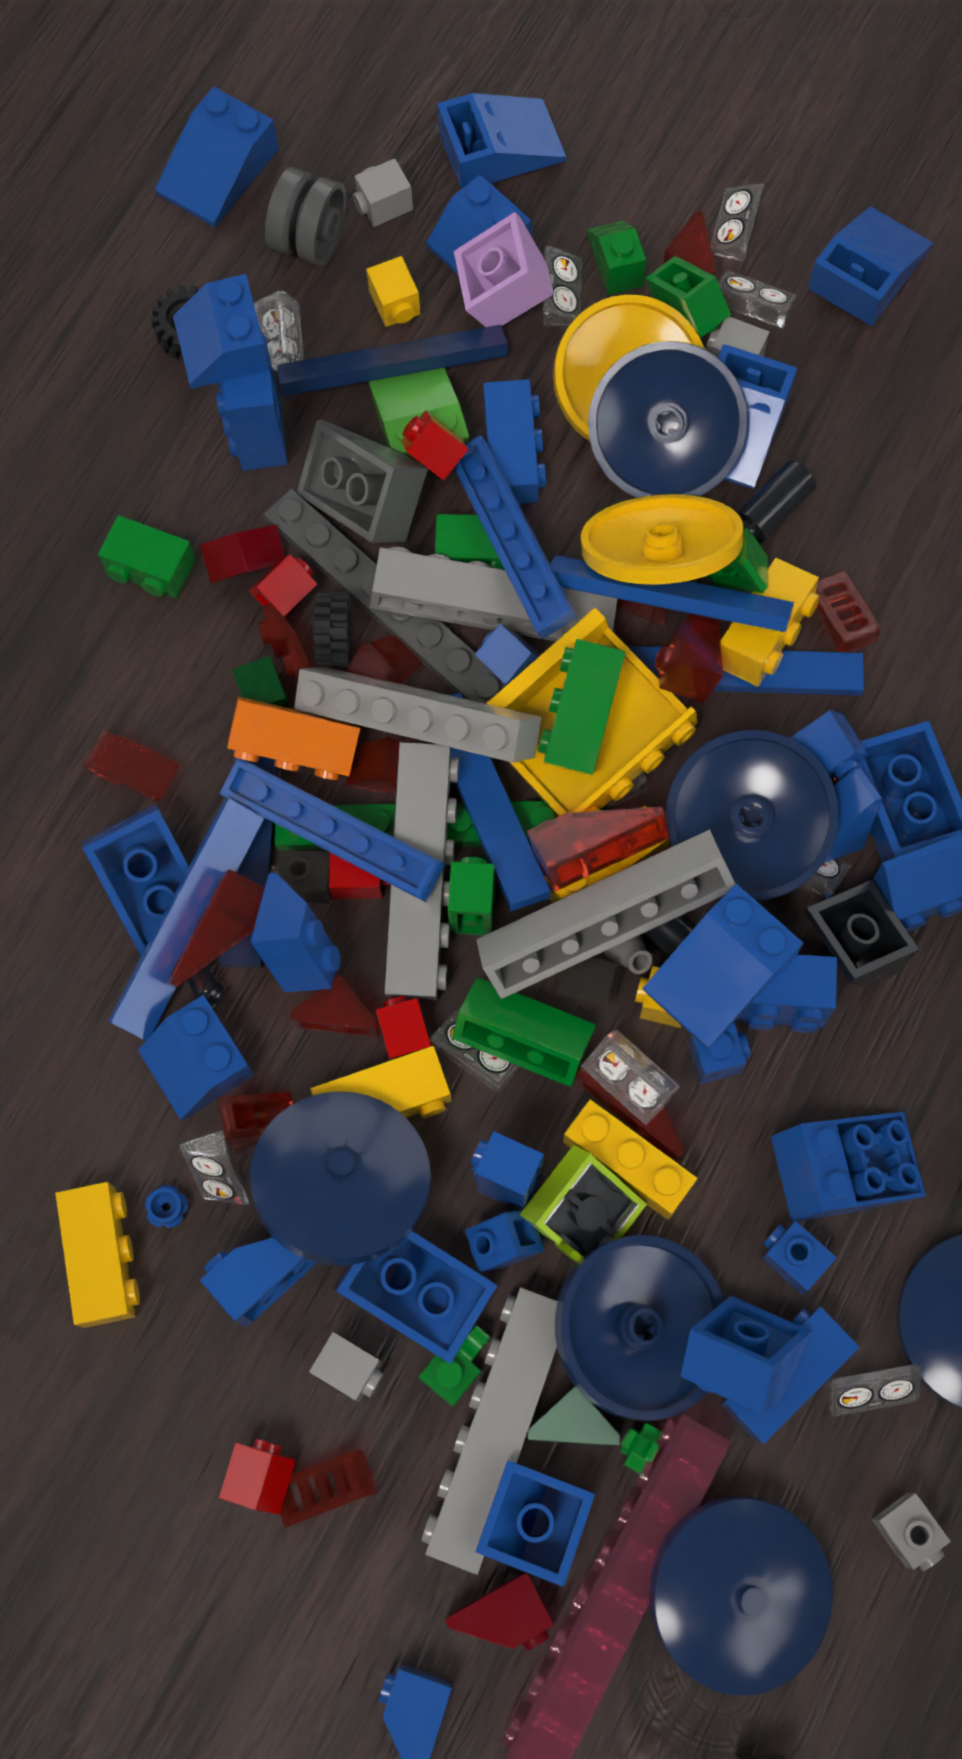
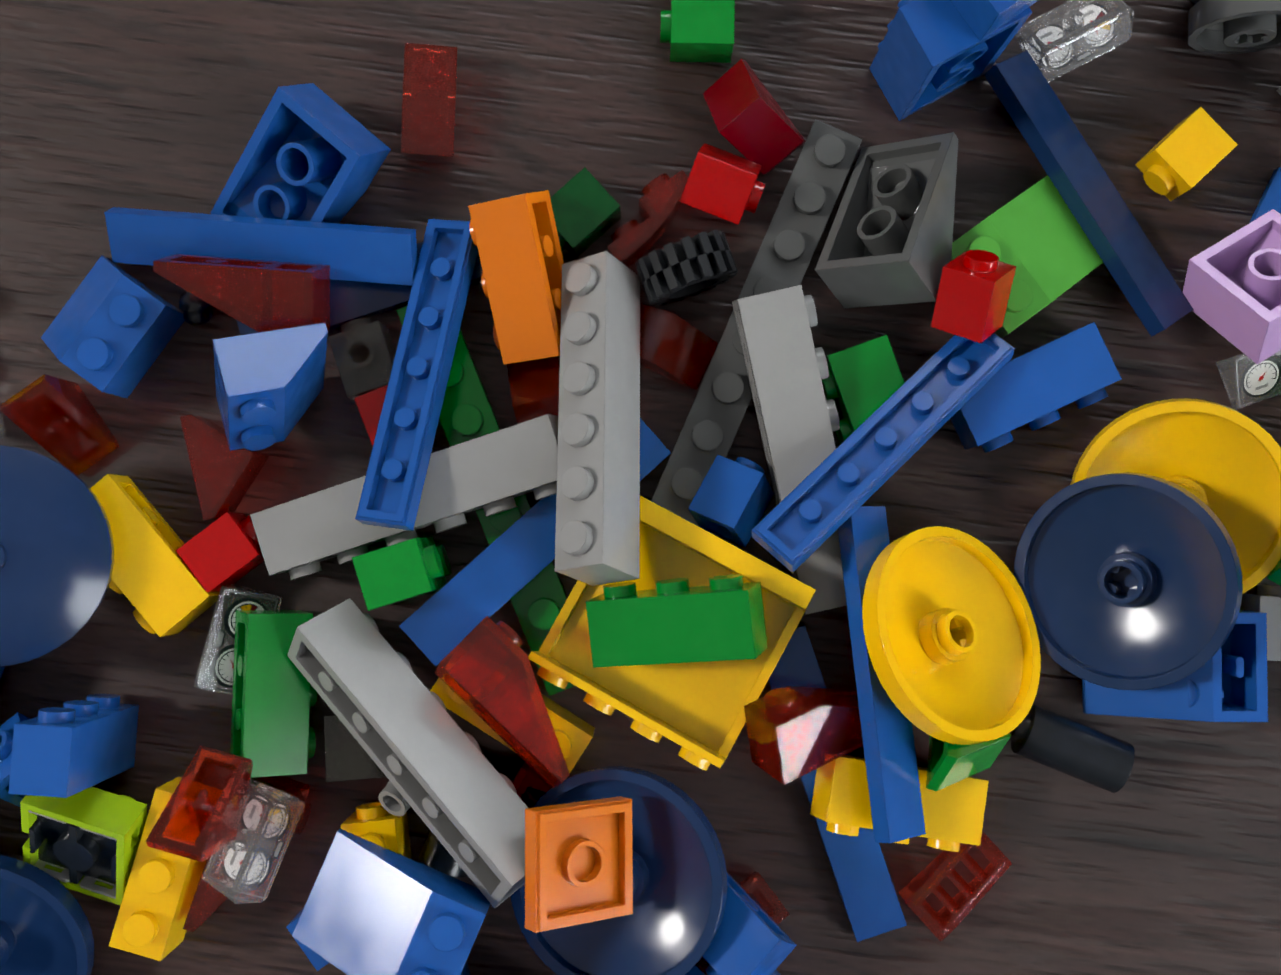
camera: 65 degrees right, 15 degrees up
(586, 1080) = (204, 806): none -> clear red slope
(724, 818) = (578, 863): none -> orange tile

